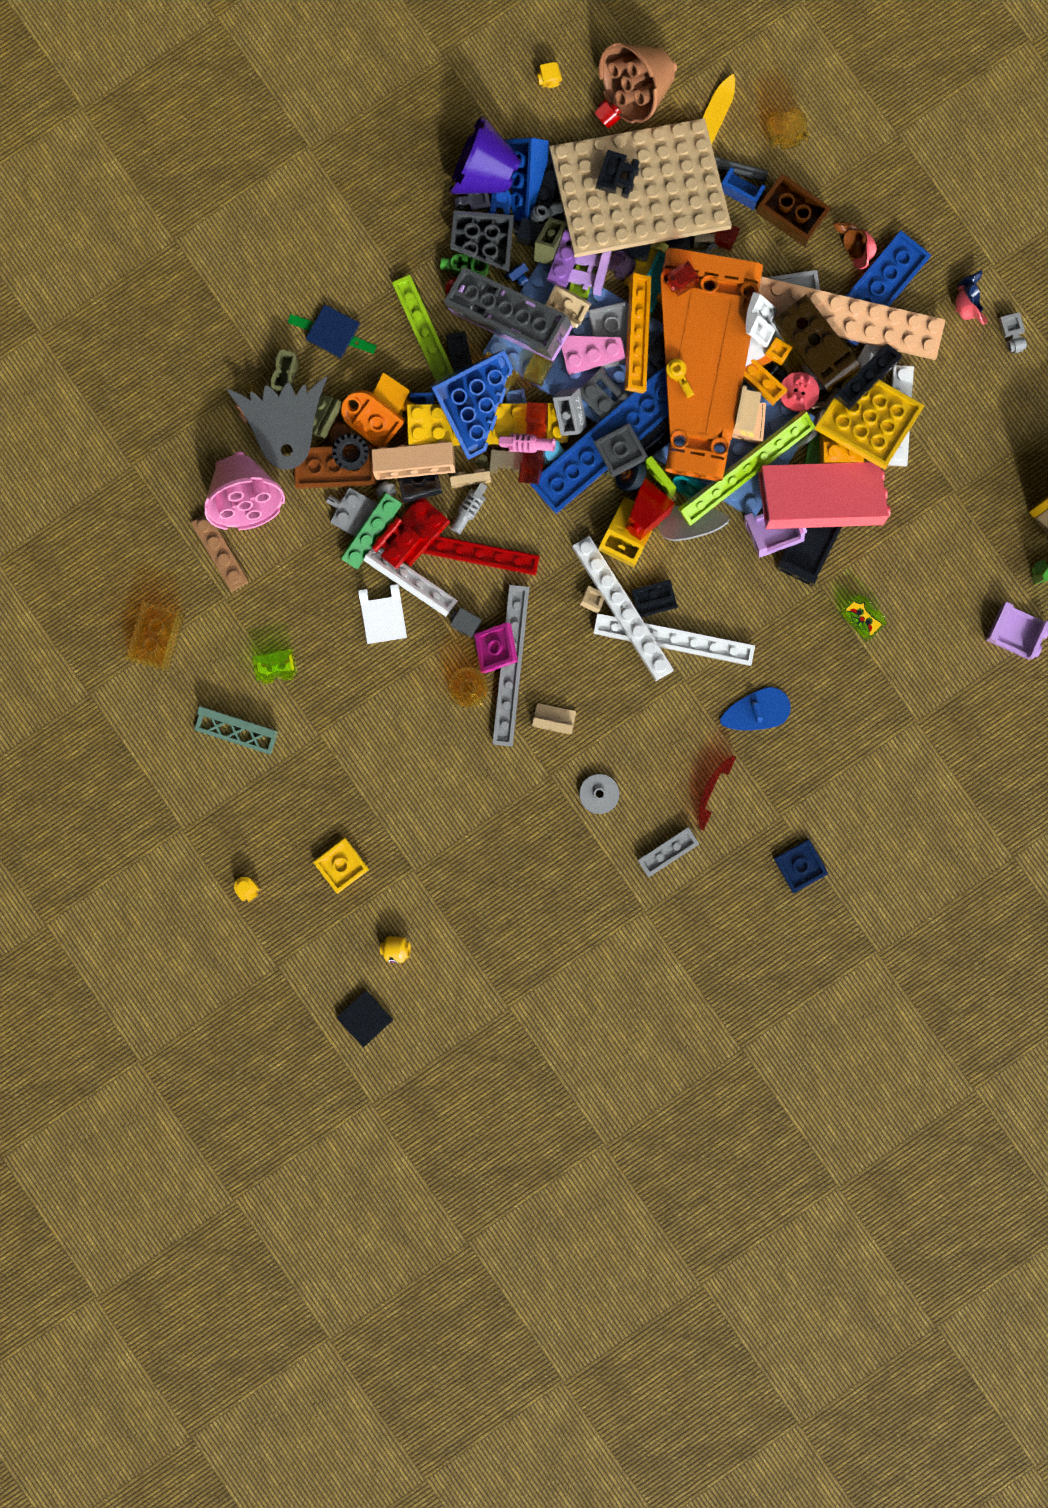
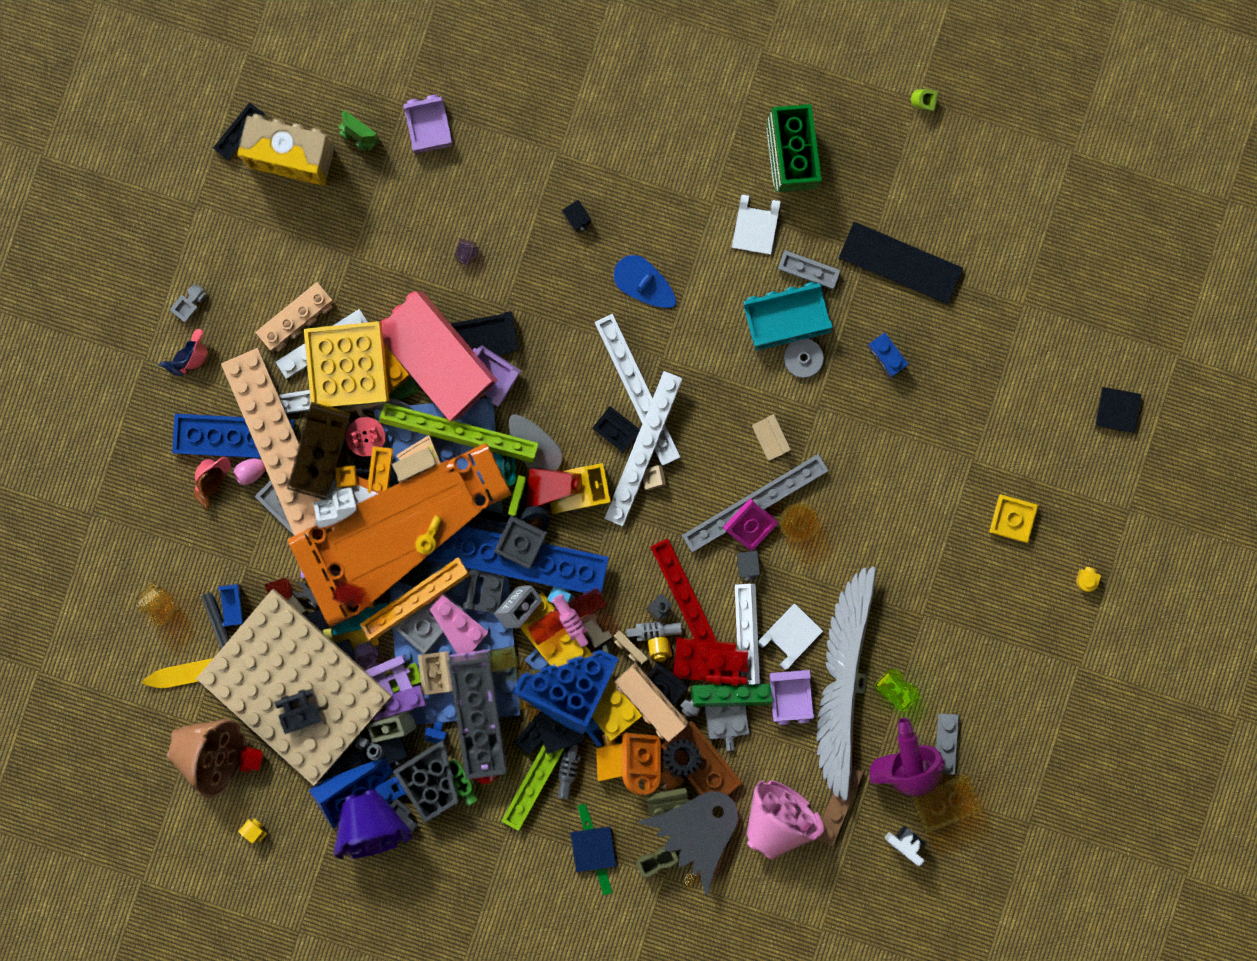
camera: 135 degrees left, 0 degrees up
(145, 580) = (907, 843): none -> white piece
(201, 628) = (914, 769): none -> magenta piece
(202, 674) = (947, 740): none -> light grey plate
(244, 725) = (965, 688): sand green fence -> none
(328, 639) = (839, 697): none -> light grey piece
(333, 578) = (791, 696): none -> lavender panel
(395, 949) = (1046, 426): yellow head -> none
(409, 357) = (568, 771): none -> dark grey hinge
(443, 364) = (556, 735): none -> black plate
(451, 501) = (659, 649): none -> yellow plate
(484, 525) = (659, 607): none -> dark grey plate
(550, 863) = (887, 354): none -> blue brick
(618, 932) = (900, 263): none -> black tile
(643, 805) = (787, 316): none -> teal panel
(702, 814) = (710, 275): clear red slope -> none
(735, 835) = (755, 227): none -> white flag
(738, 1053) = (924, 99): none -> lime plate
(777, 912) = (793, 148): none -> green brick
(793, 210) = (220, 550): reddish brown brick -> none
(800, 866) = (741, 158): dark blue tile -> none
(840, 280) = (249, 471): none -> bright pink animal
(852, 696) = (577, 216): none -> black brick
(863, 617) = (508, 253): brick -> none
(868, 376) = (314, 389): black plate -> none
(890, 585) = (465, 251): none -> clear purple plate
(938, 408) = (294, 317): none -> light nougat brick

